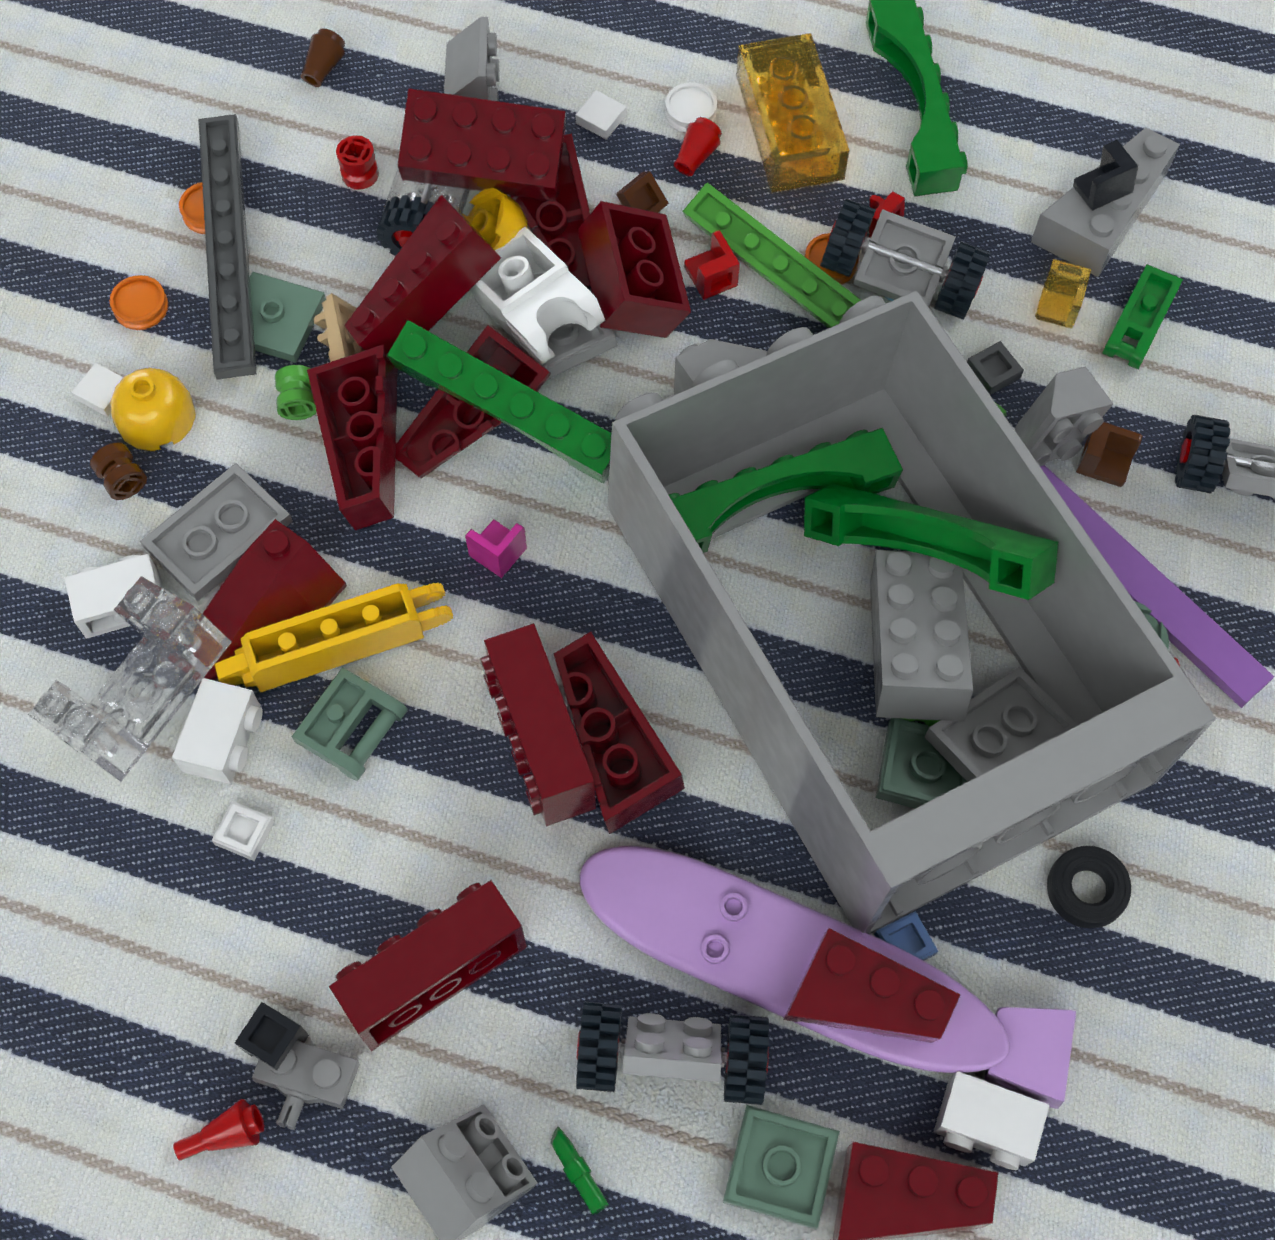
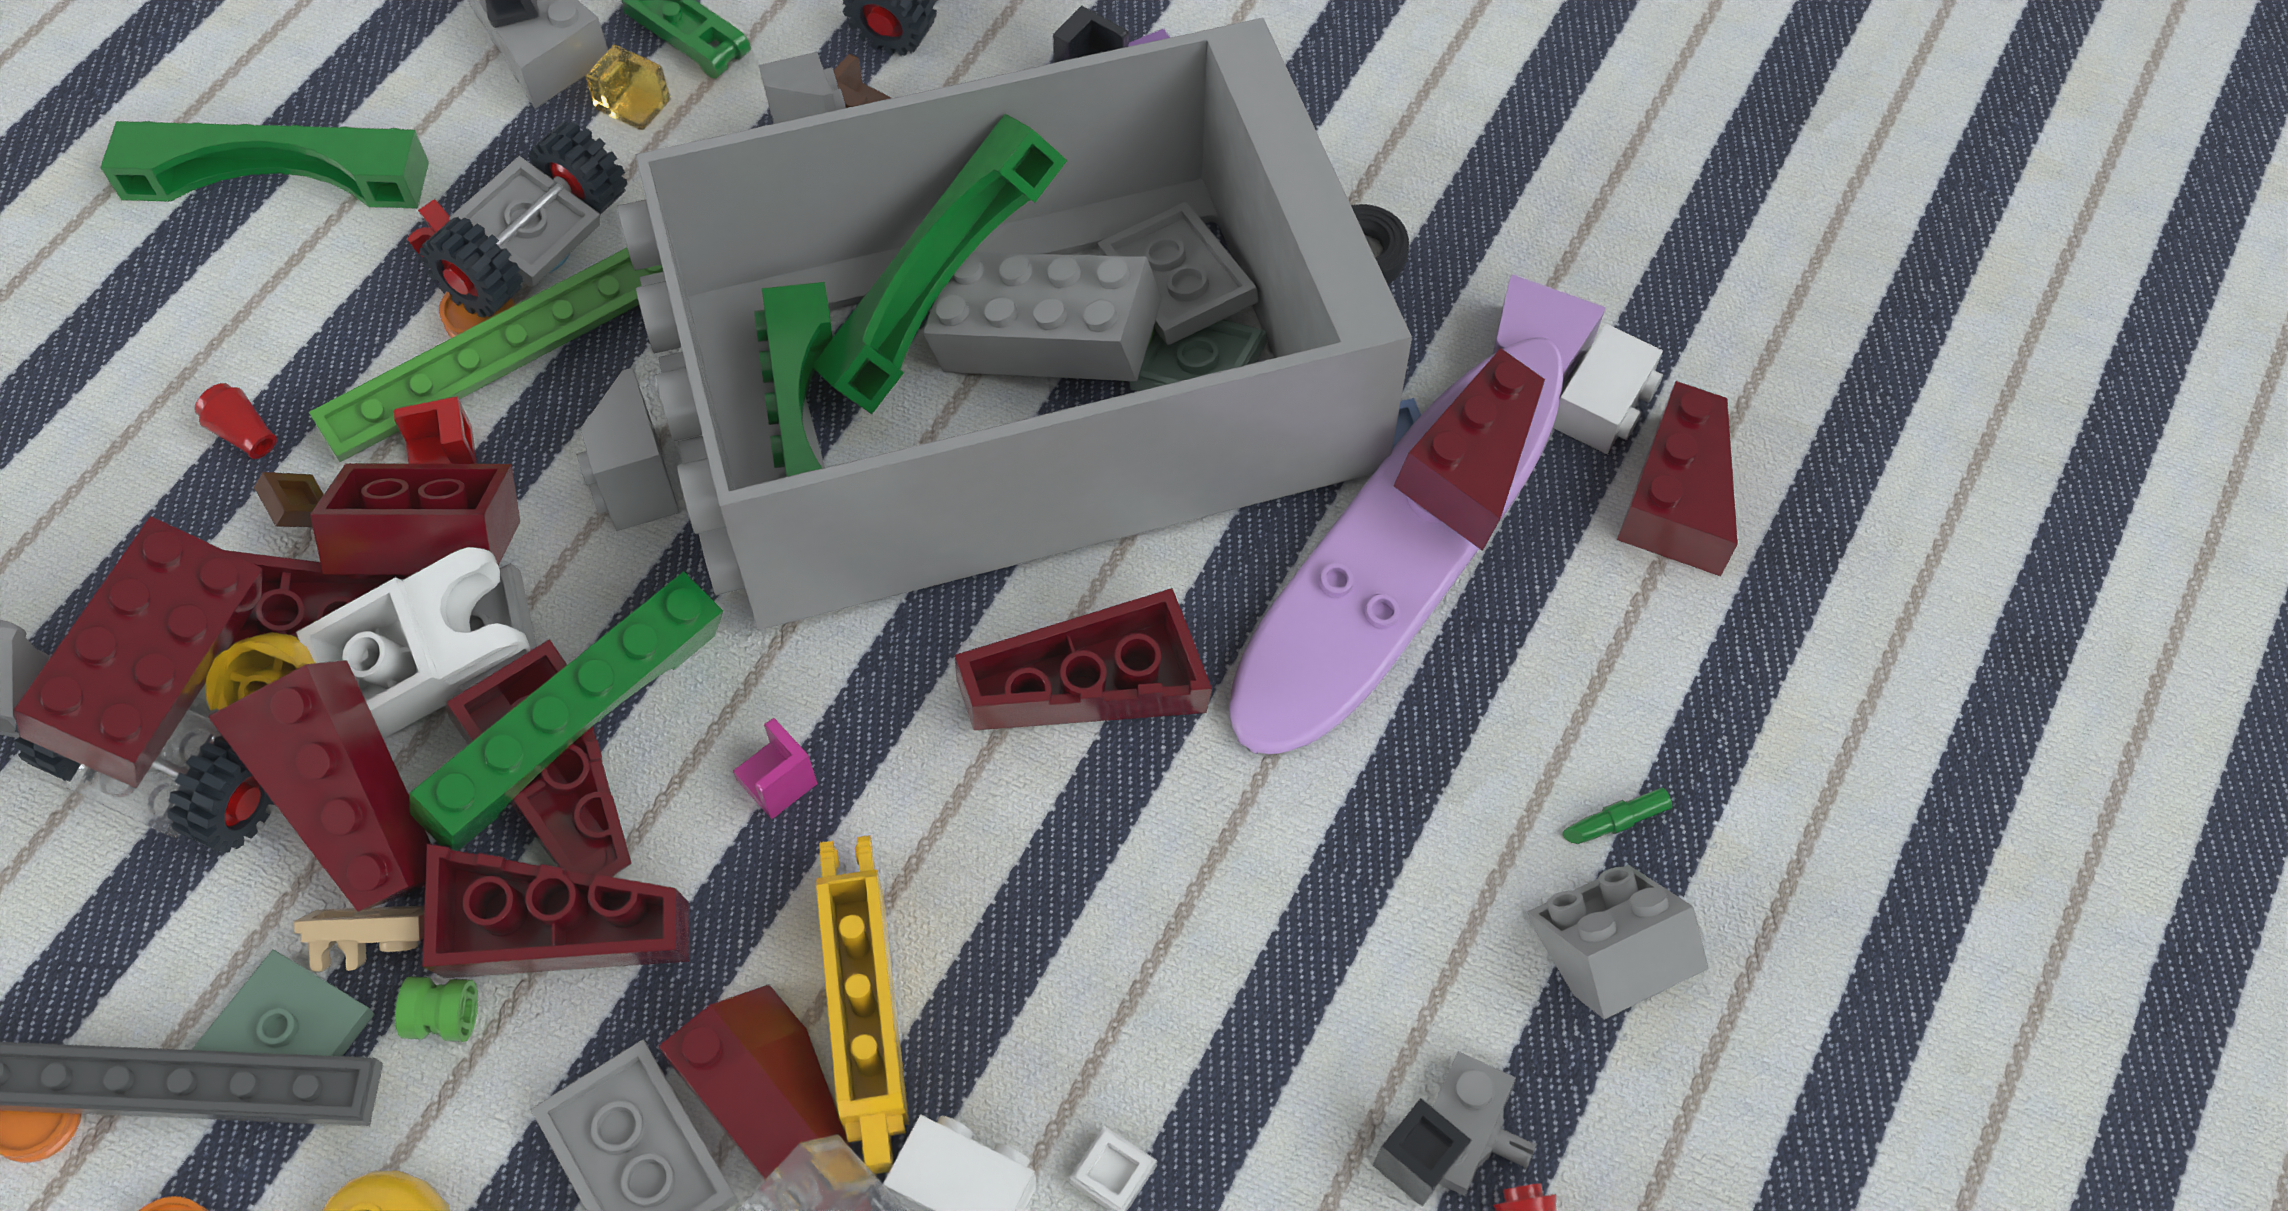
camera: 80 degrees left, 5 degrees down
(338, 715) = (976, 1016): sand green plate -> none
(357, 162) = (56, 867): red wheel -> none
(429, 964) = (1361, 930): dark red brick -> none
(537, 726) = (1061, 747): dark red brick -> none
(601, 114) = (116, 527): white tile -> none
(673, 1050) = (1502, 676): plate -> none
(689, 102) = (162, 420): white piece -> none
(781, 1167) = (1636, 600): sand green plate -> none
(792, 112) = (238, 295): clear yellow brick -> none
(1215, 617) = (1086, 35): none -> black panel

